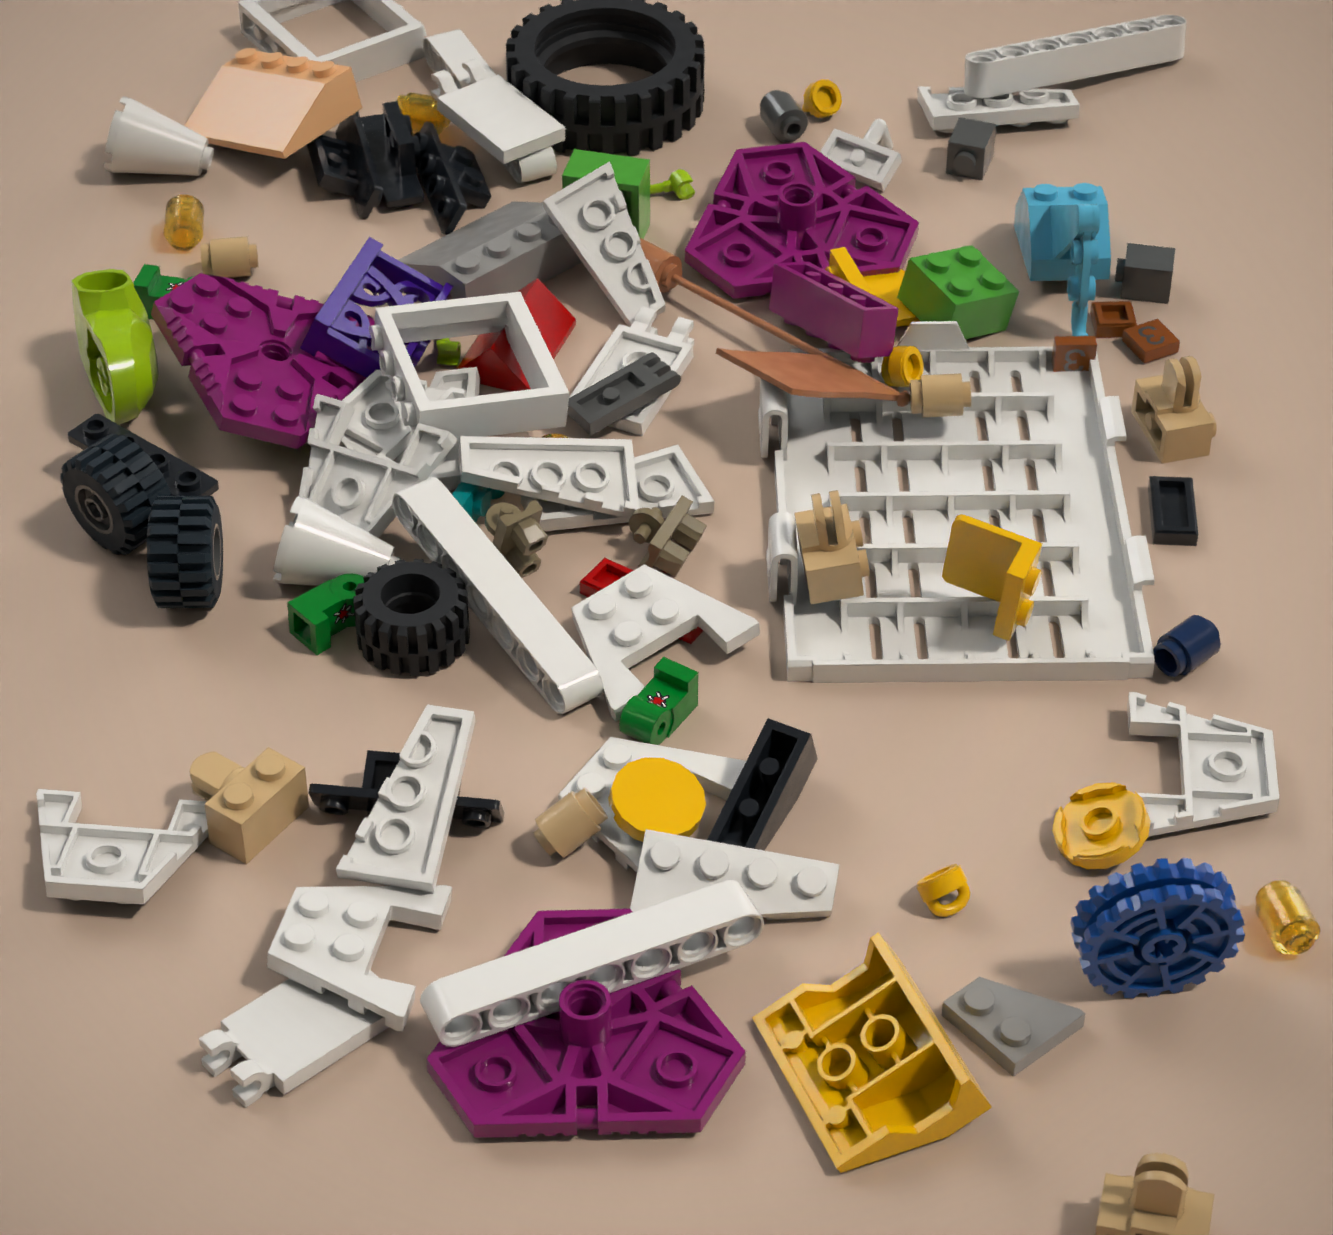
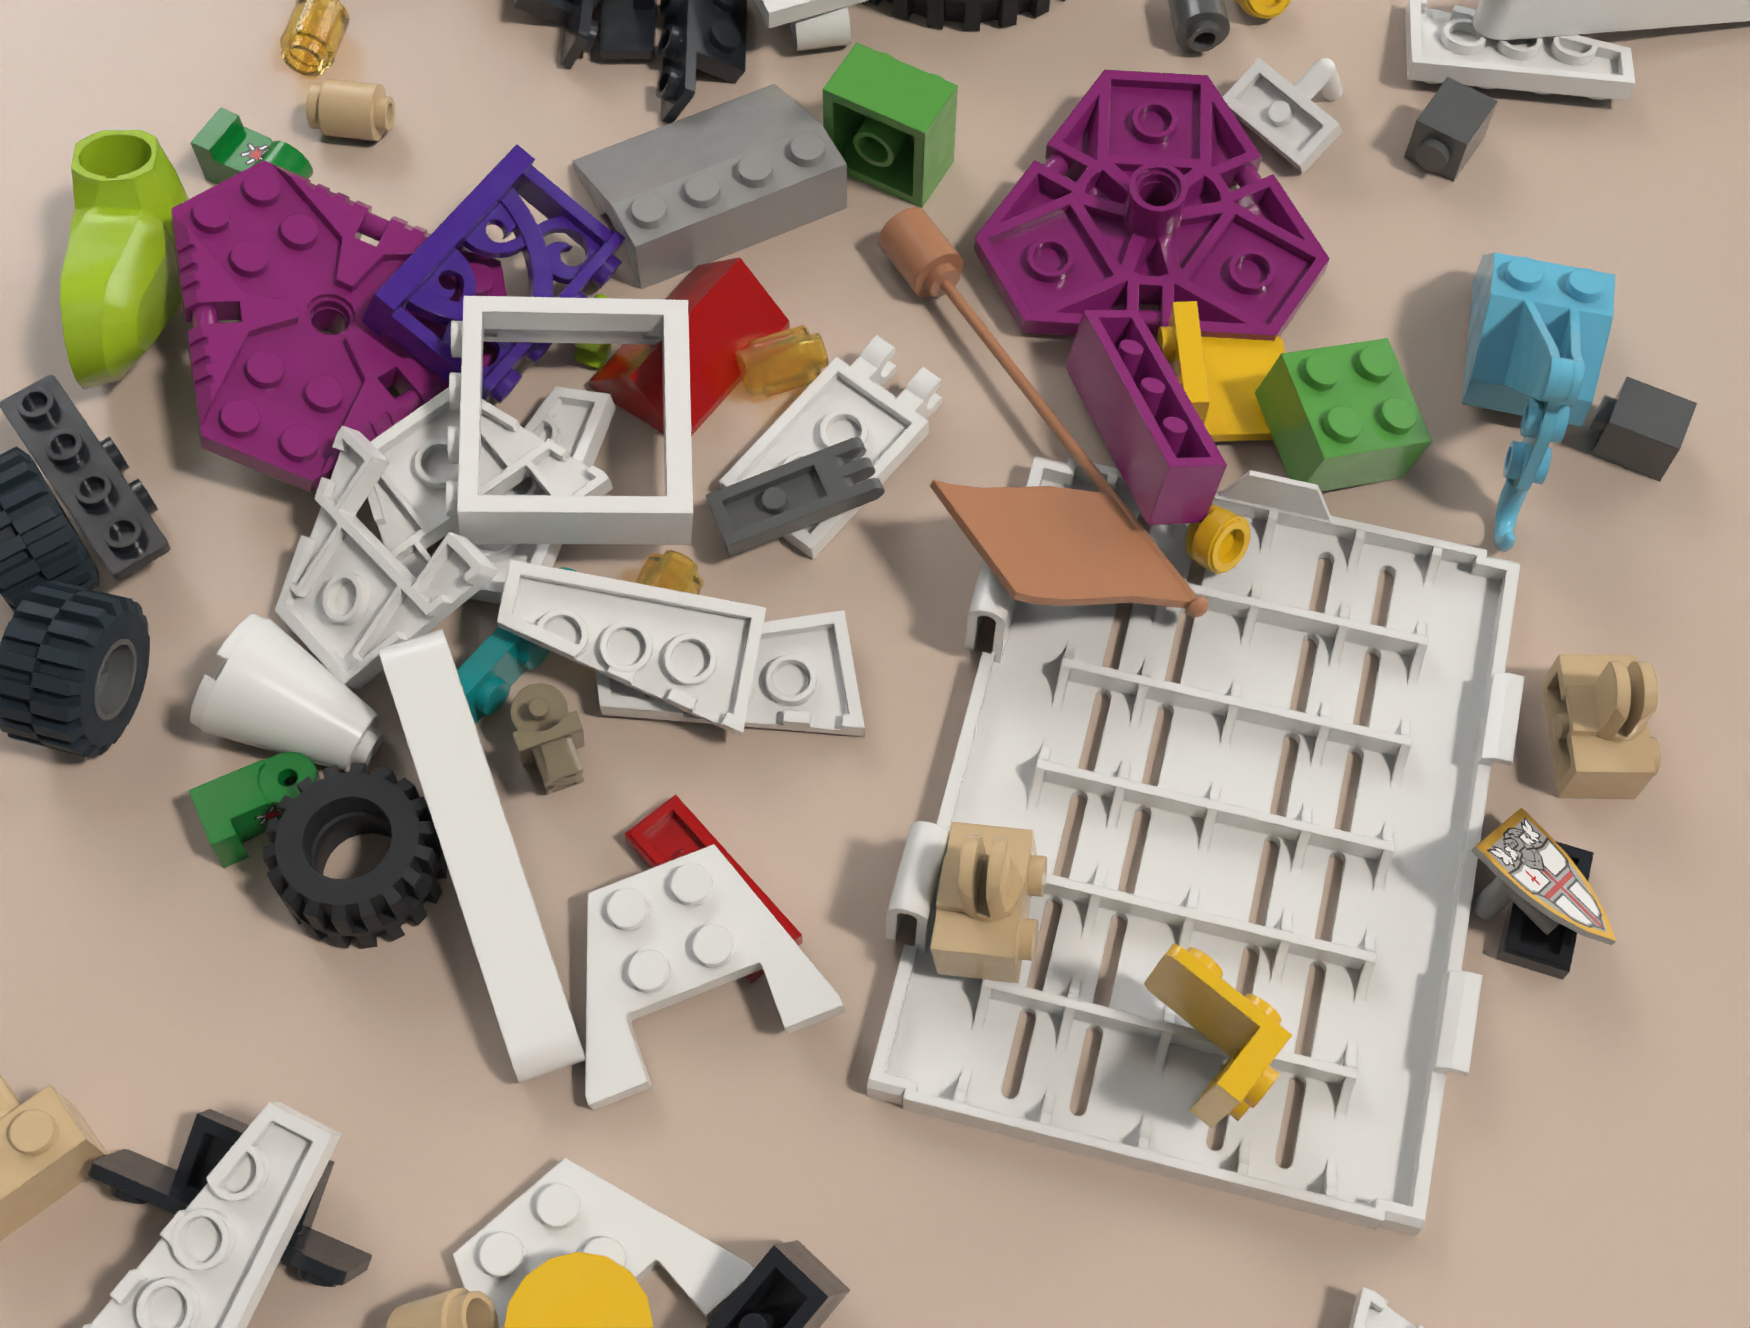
camera: 15 degrees right, 20 degrees up
(582, 335) = (782, 361): none -> clear yellow brick
(601, 233) = (854, 202): white wing -> none
(652, 528) = (797, 764): dark tan hips -> none
(661, 703) = (653, 1117): green leg -> none
(677, 182) = (1012, 100): lime hand -> none
(939, 395) = (1249, 623): tan brick -> none
(1073, 353) = (1483, 565): dark orange tile -> none
(1112, 318) = (1568, 500): dark orange tile -> none
(1150, 495) = (1538, 880): none -> shield
(1151, 340) = (1611, 555): dark orange tile -> none
(1187, 646) = (1483, 1208): dark blue brick -> none

